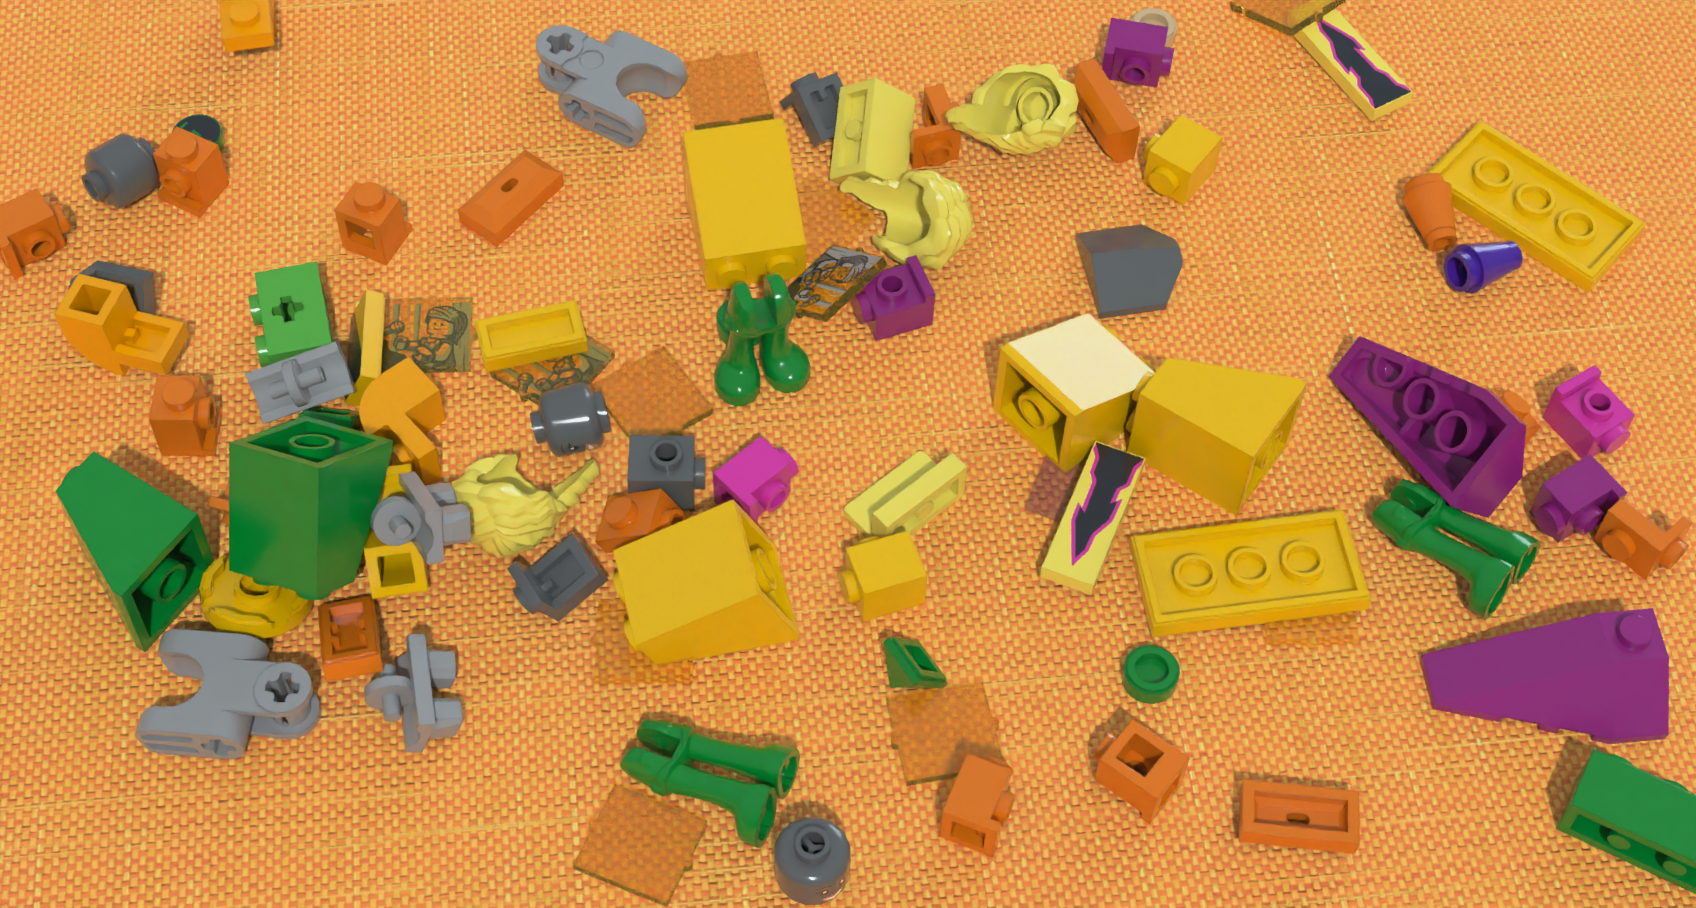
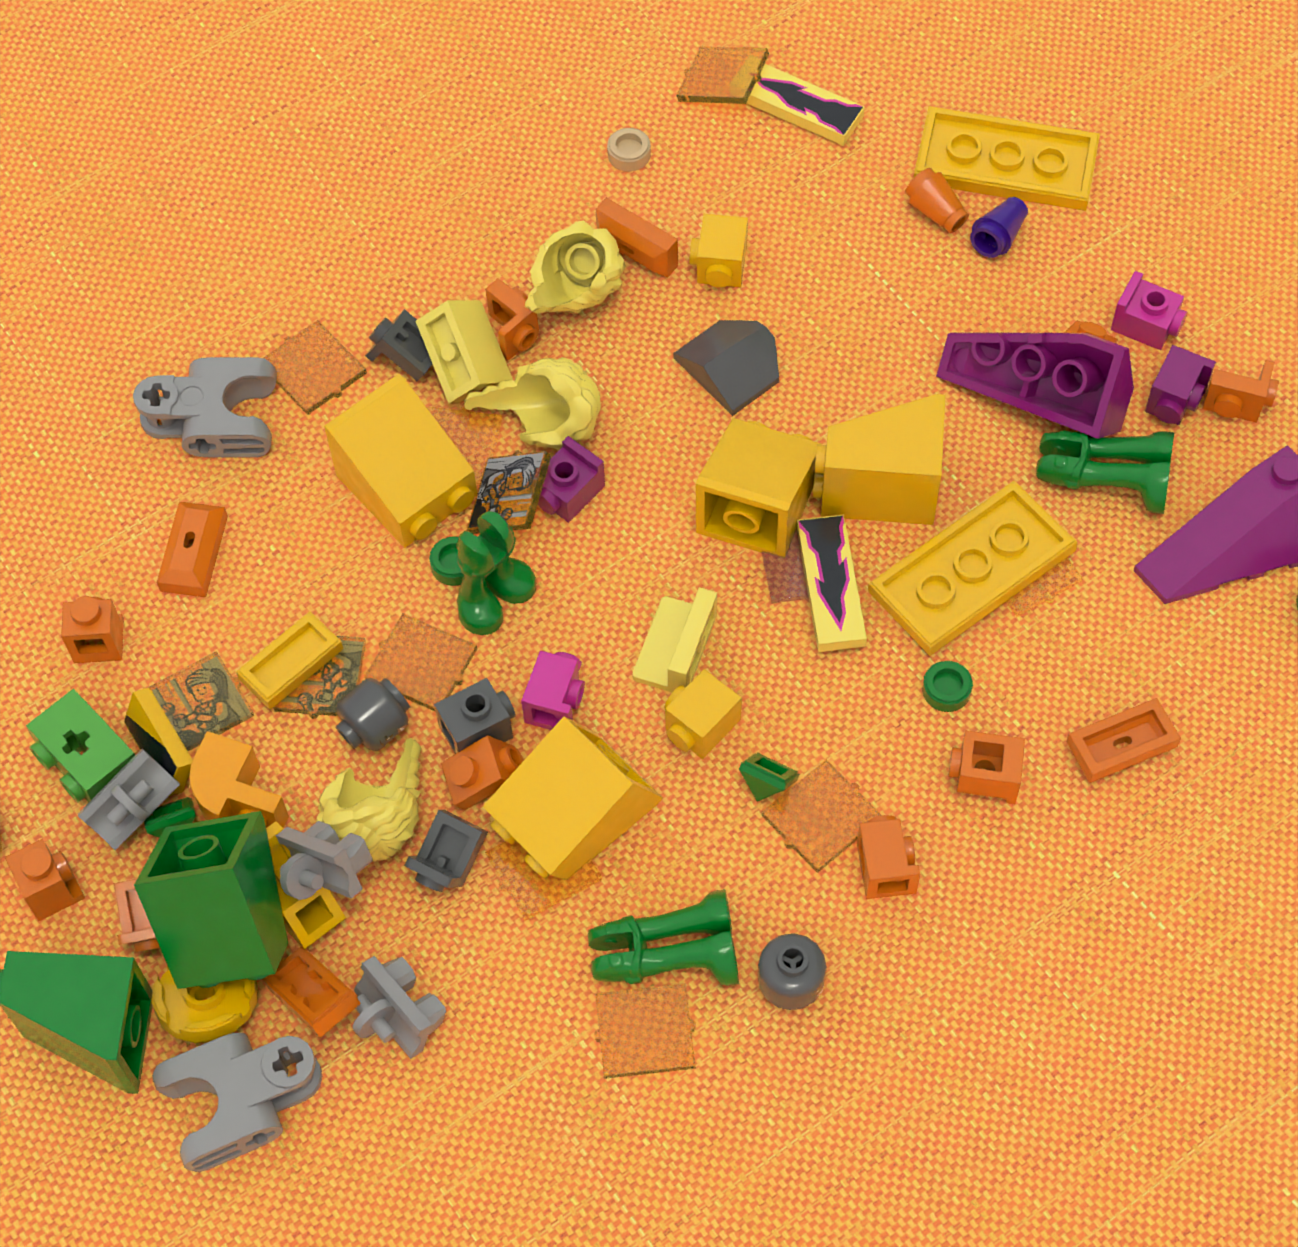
camera: 25 degrees left, 5 degrees up
(1136, 53) = (632, 175): magenta brick -> none

